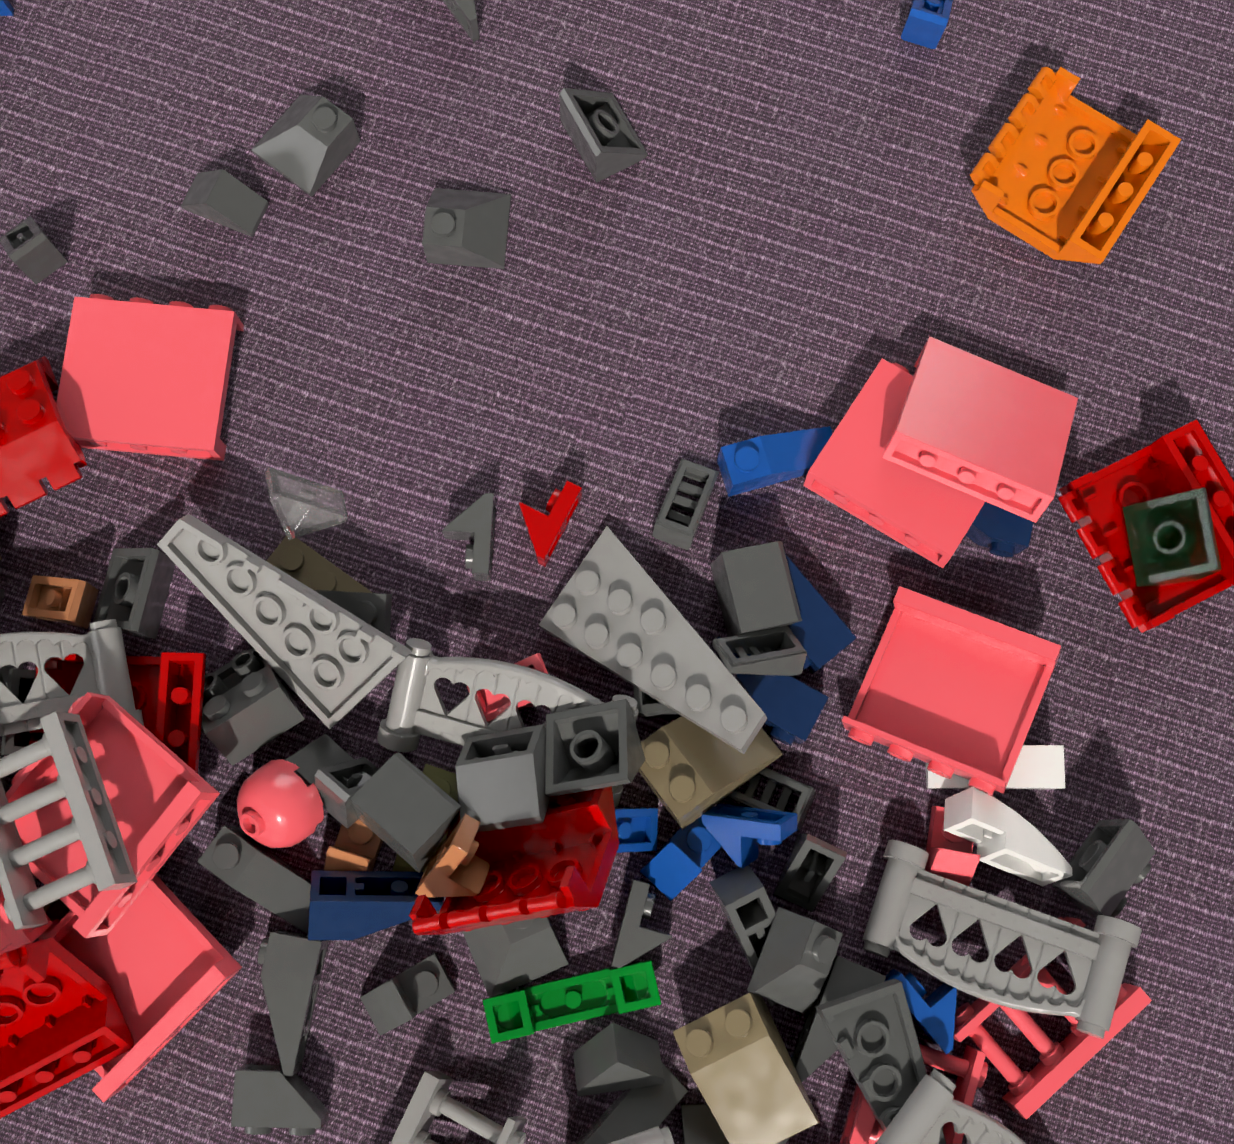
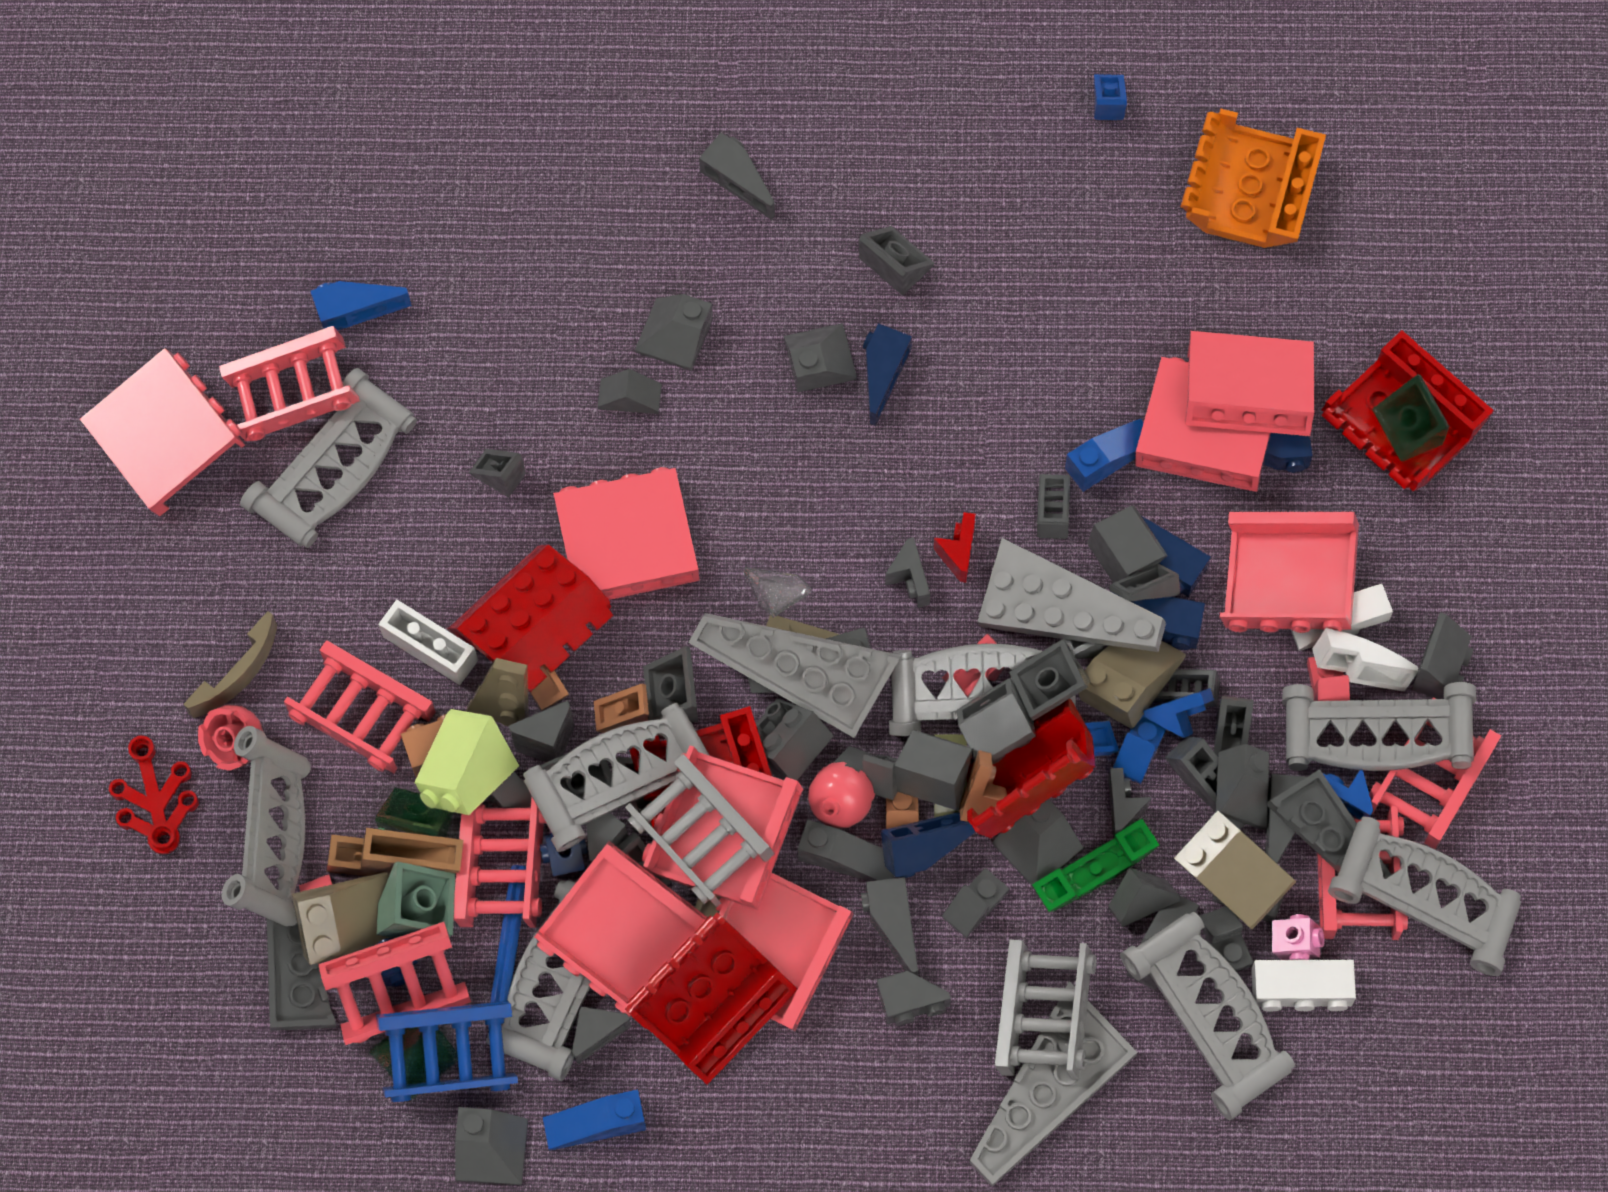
camera: 10 degrees left, 10 degrees down
(542, 256) = (885, 359): none -> dark blue slope

